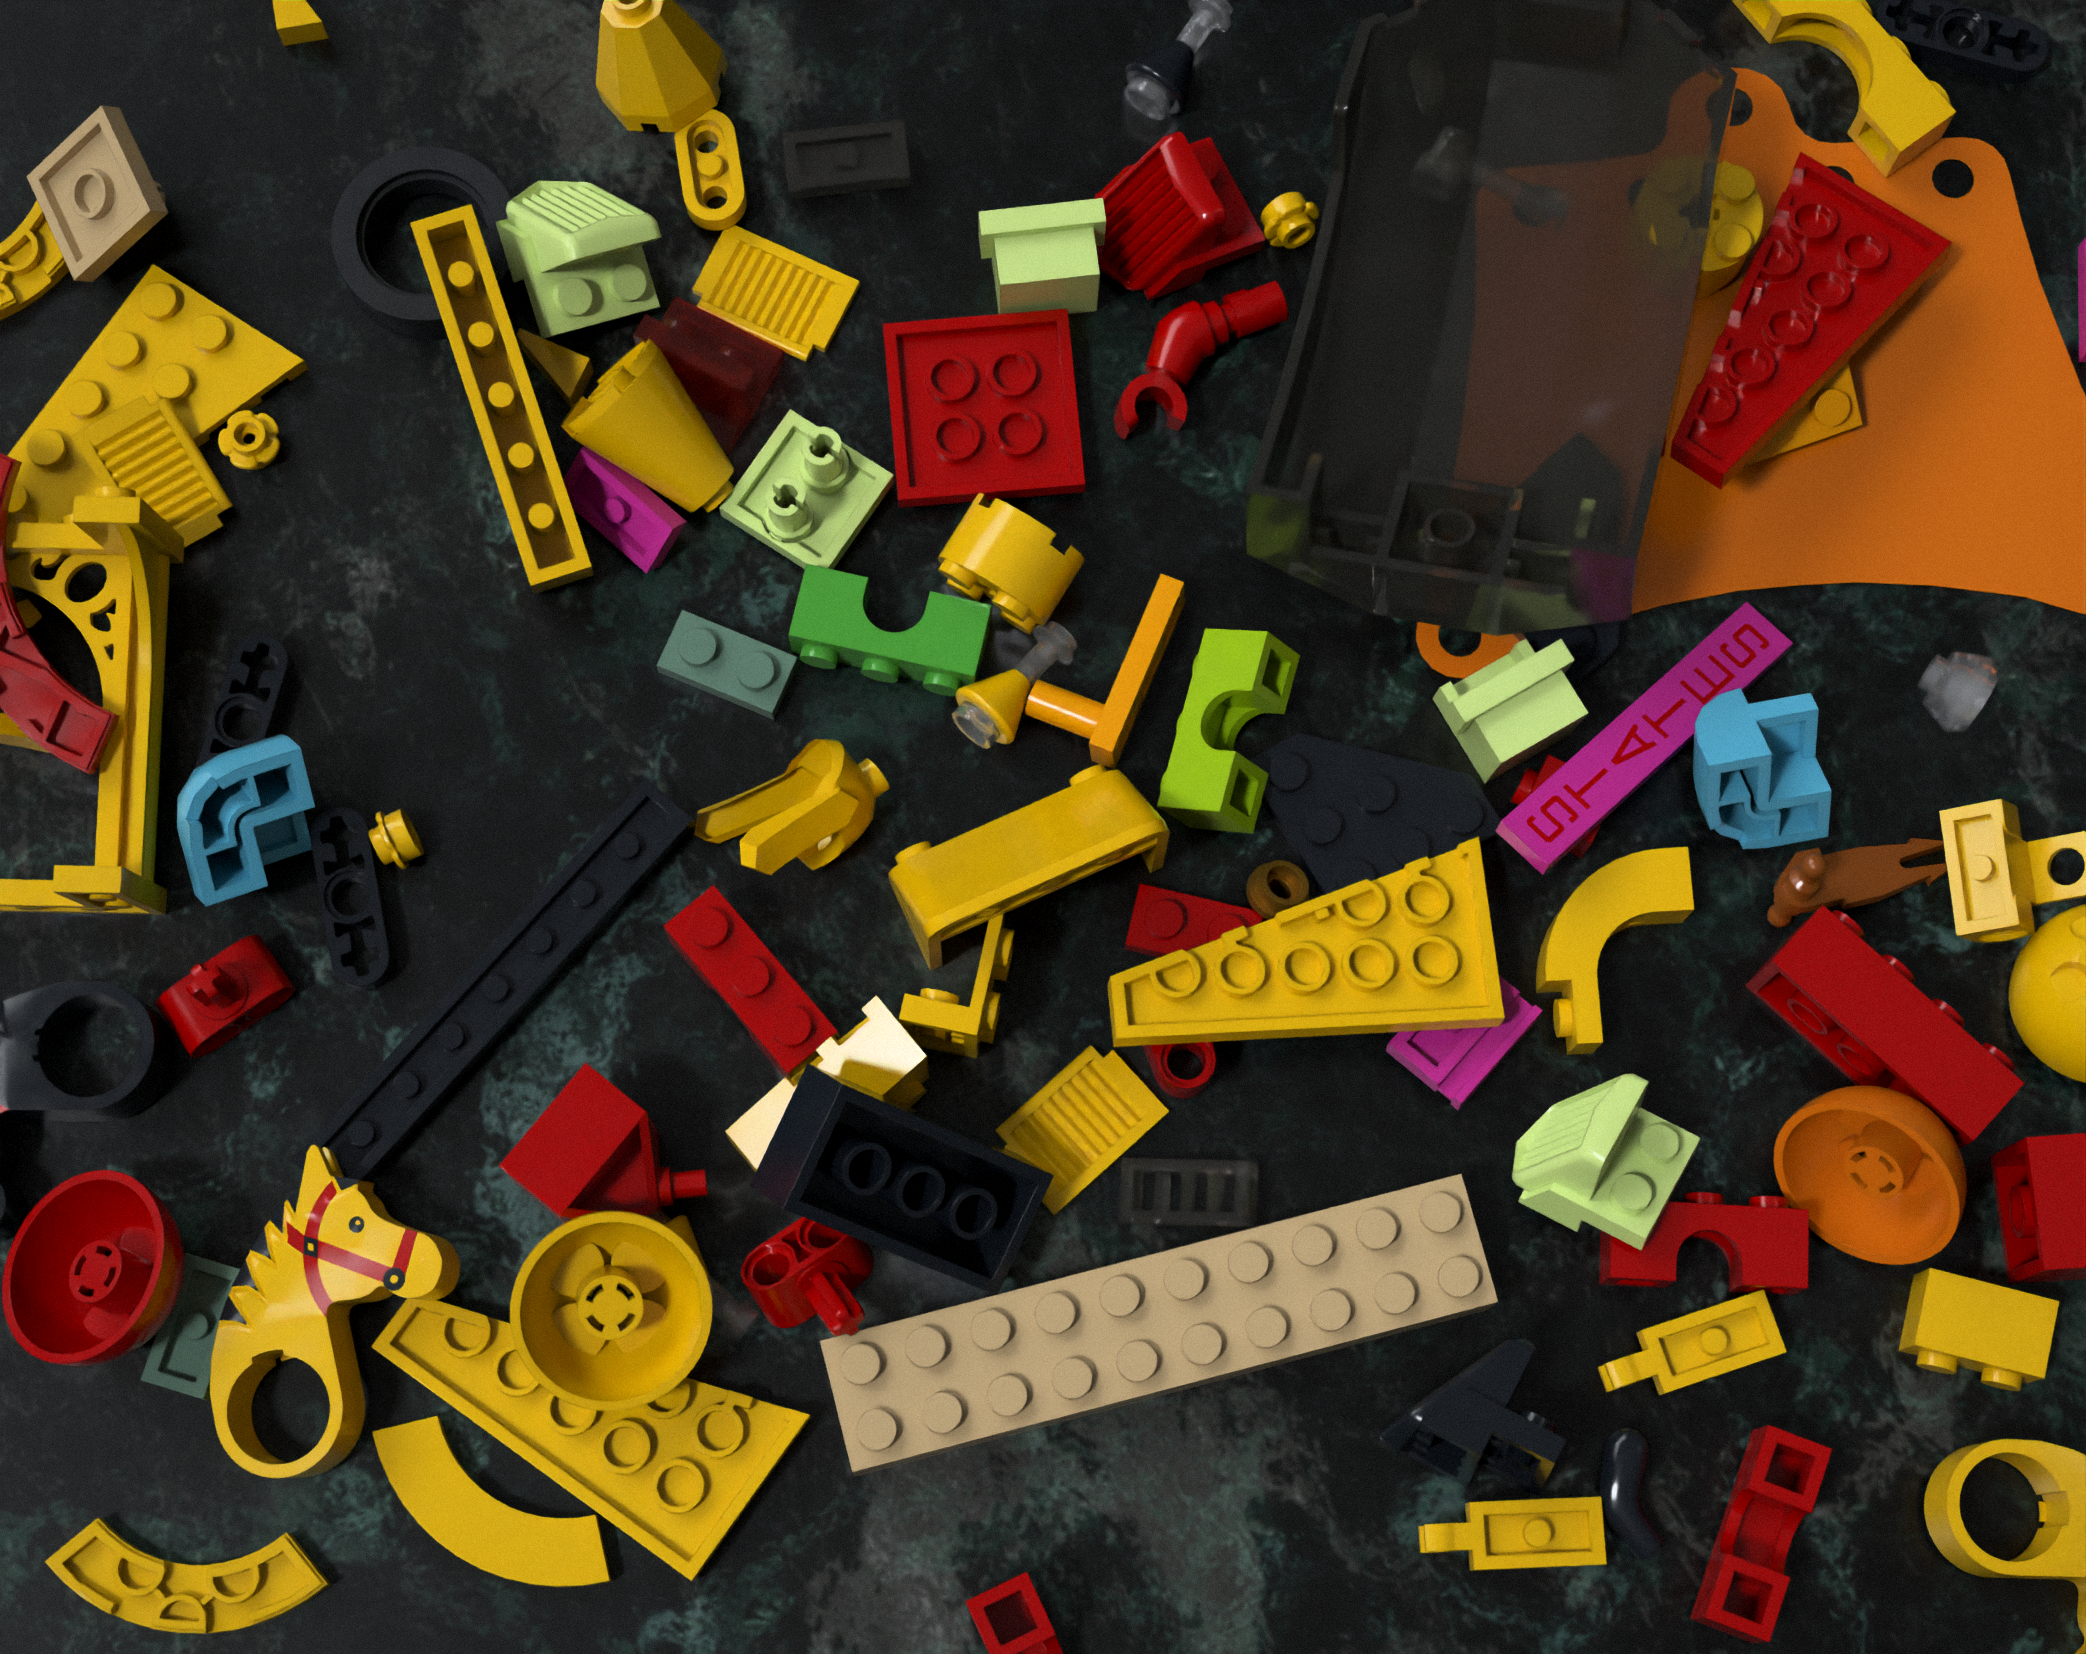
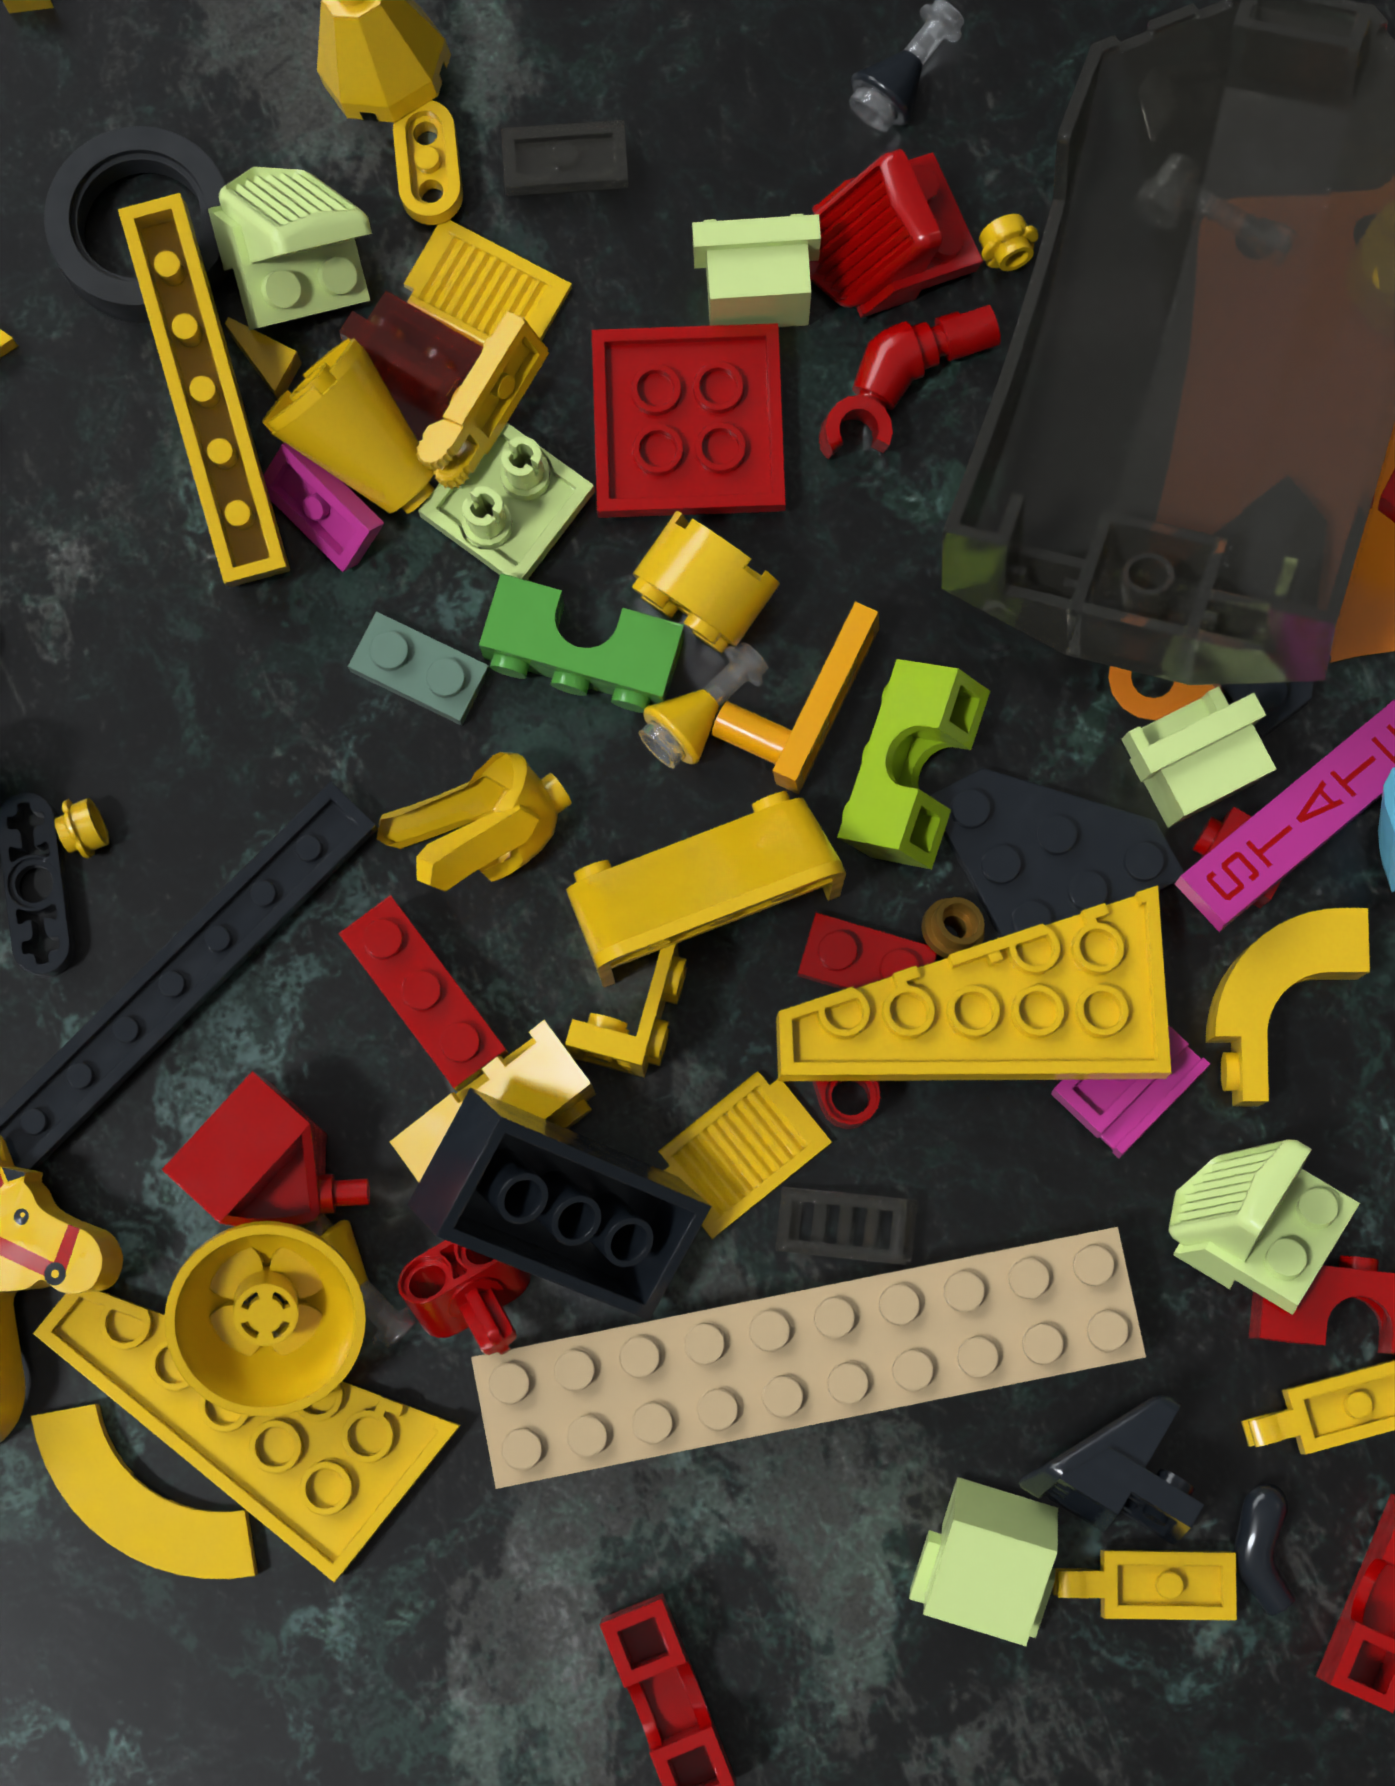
camera: 10 degrees right, 5 degrees up
(779, 397) = (483, 402): none -> yellow hinge
(1354, 1520) = (989, 1563): none -> yellowish green plate

